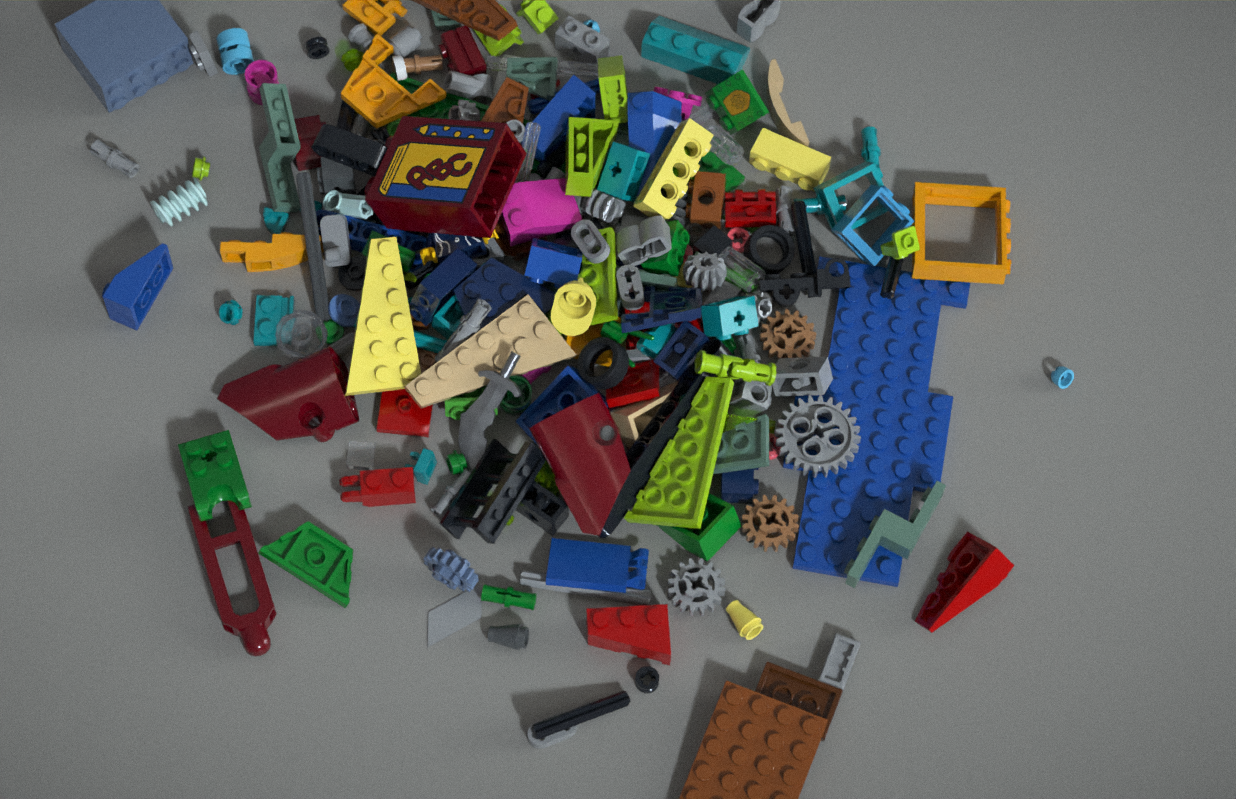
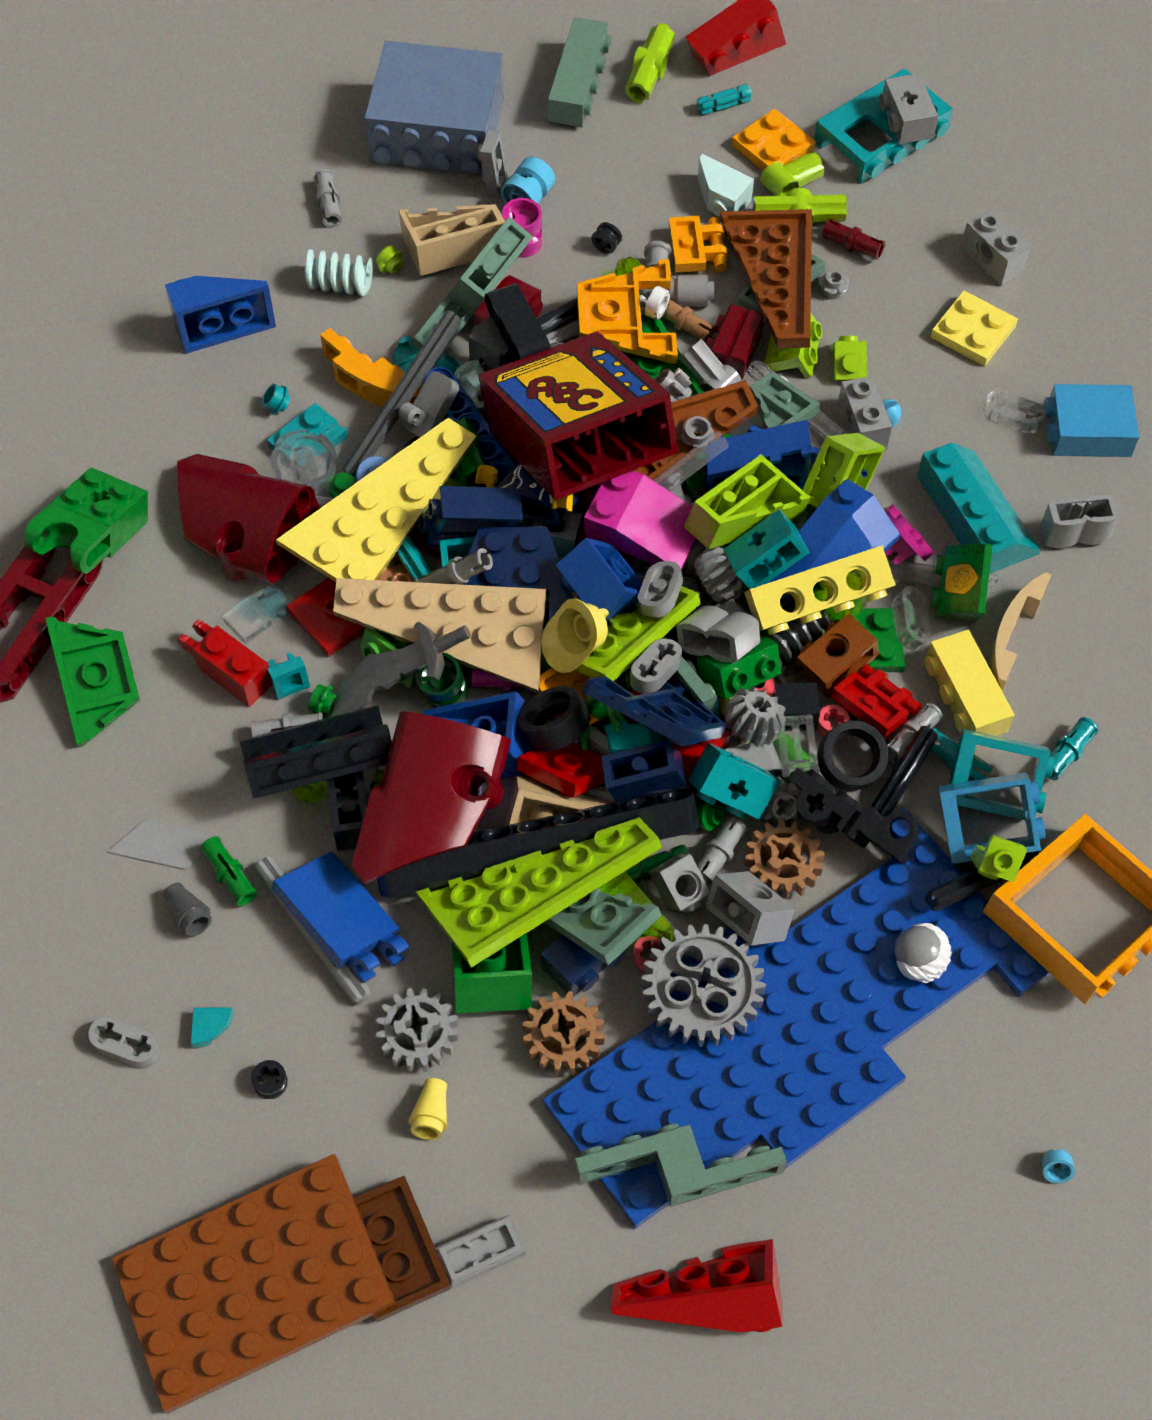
camera: 45 degrees right, 5 degrees down
(226, 124) = (448, 238): none -> tan wedge
(368, 432) = (274, 602): none -> clear light blue plate
(451, 569) = (195, 791): sand blue gear -> none
(580, 715) = (159, 1050): black axle -> none
(585, 682) = (209, 1024): none -> teal tile
(631, 630) = (306, 1013): red wedge -> none
(736, 367) = (686, 843): lime piece -> none
(905, 325) = (922, 952): none -> hair

